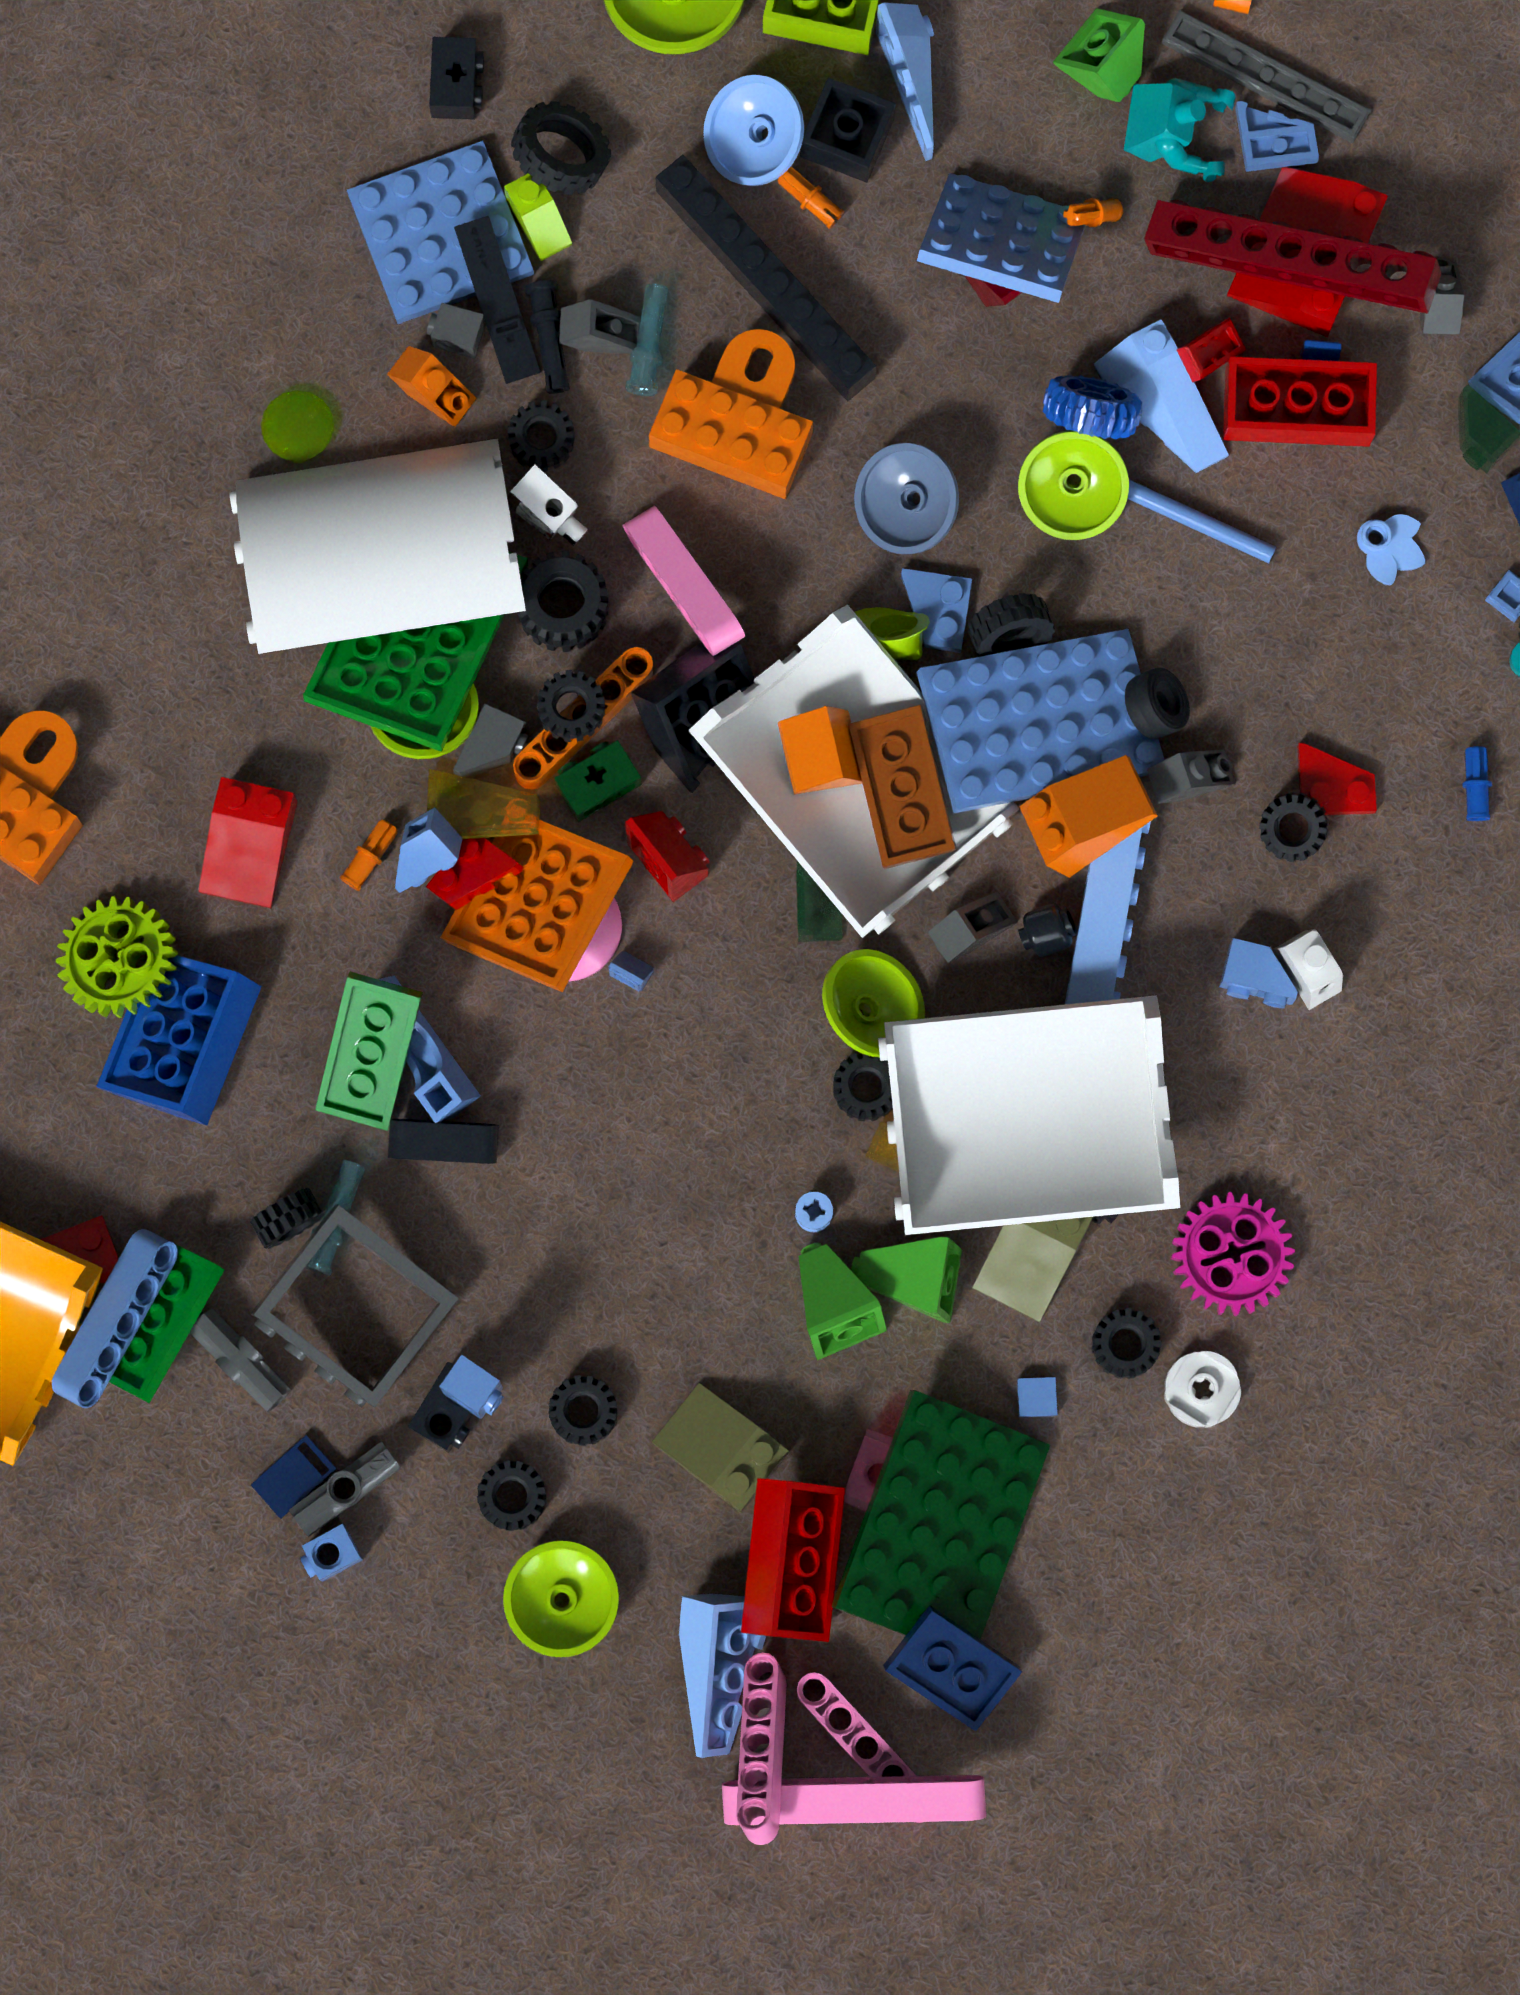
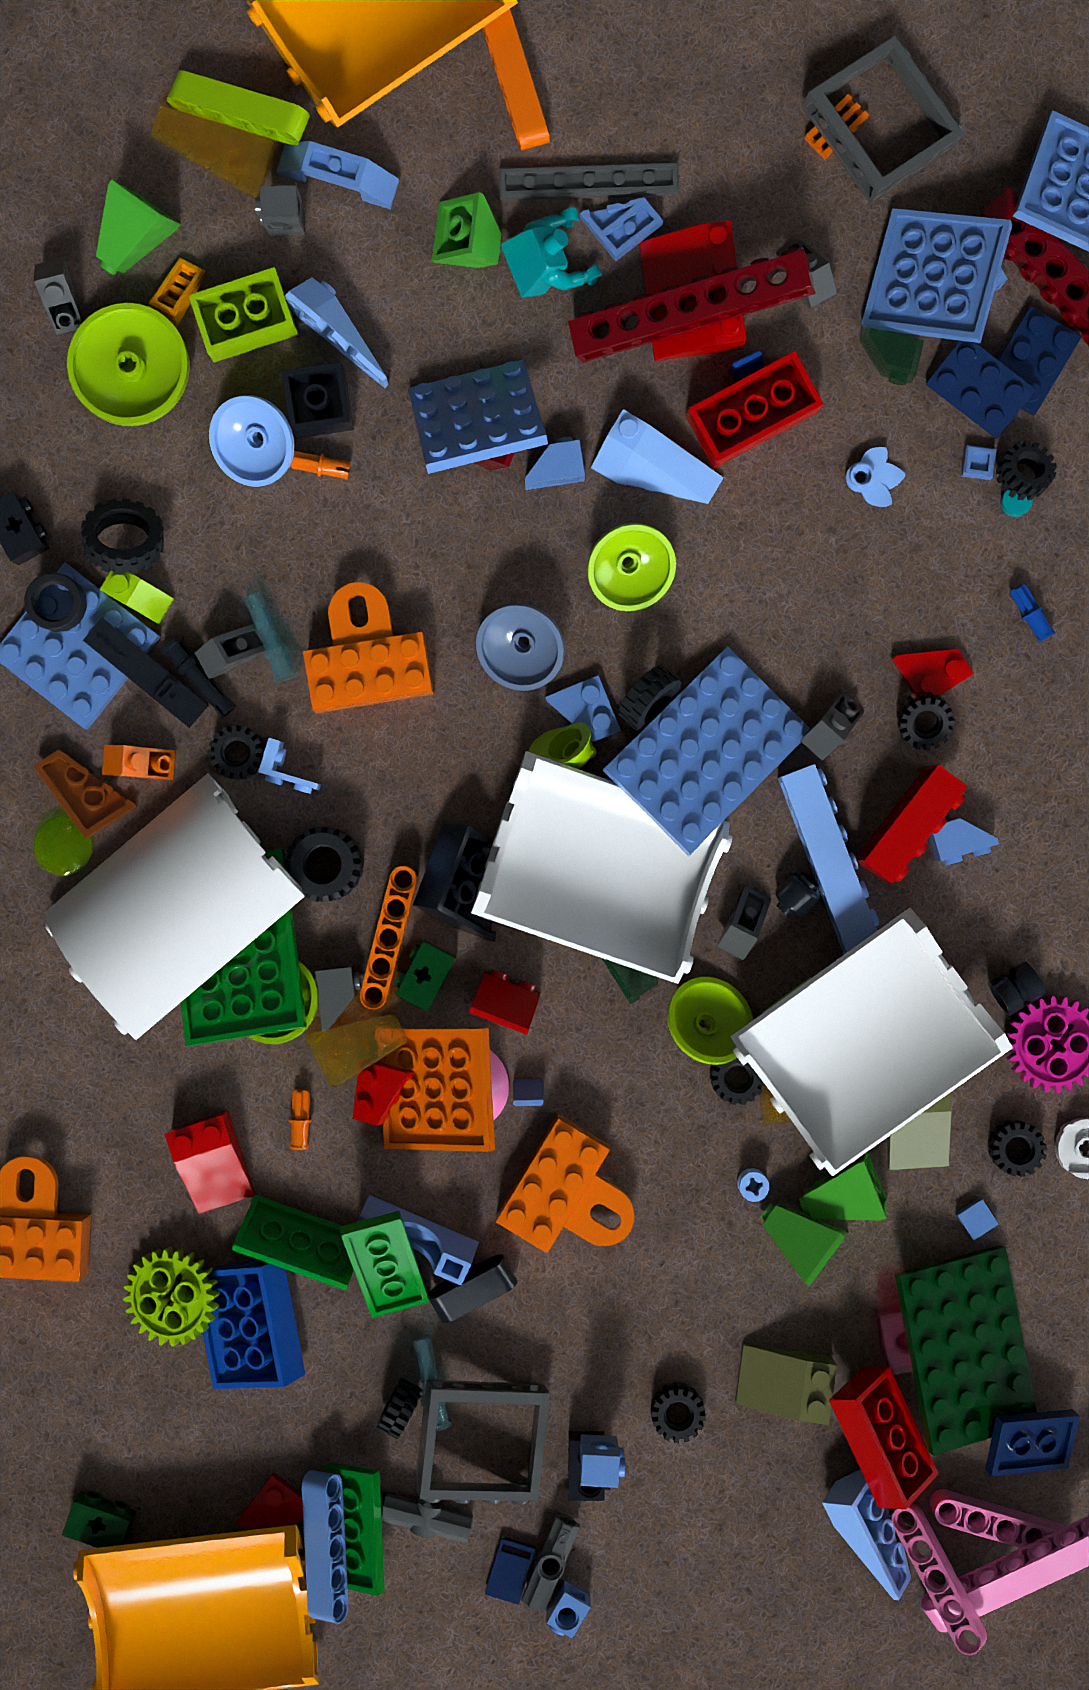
camera: 35 degrees left, 10 degrees up
(286, 975) = (294, 1242): none -> green plate
(350, 385) = (81, 795): none -> dark orange wing
(426, 848) = (338, 1099): medium blue slope -> none
(441, 147) = (36, 588): none -> black tyre
(456, 330) = (131, 712): dark grey brick -> none
(528, 1512) = (668, 1515): black tyre -> none
(534, 495) = (258, 804): white torso -> none
(554, 1570) = (747, 1570): lime dish -> none
(571, 683) = (361, 950): black tyre -> none
(579, 462) = (274, 756): none -> light blue bracket
(603, 1090) = (562, 1188): none -> orange brick
(684, 580) = (401, 801): bright pink beam -> none
(765, 278) = (323, 543): black brick -> none
(819, 750) = (569, 866): orange slope -> none
(902, 787) = (641, 857): dark orange plate -> none
(1058, 339) = (557, 465): none -> medium blue slope
(1087, 814) = (782, 801): orange slope -> none
(1092, 406) = (612, 503): blue gear -> none
(1094, 212) = (528, 357): orange axle -> none
(1157, 703) = (781, 690): black tyre -> none
(1200, 522) = (733, 538): medium blue piece -> none
(1211, 349) = (669, 409): red plate -> none
(1212, 919) = (911, 823): none -> red slope
(1226, 1168) = (1017, 988): none -> black wheel
(1310, 967) = (991, 813): white torso -> none

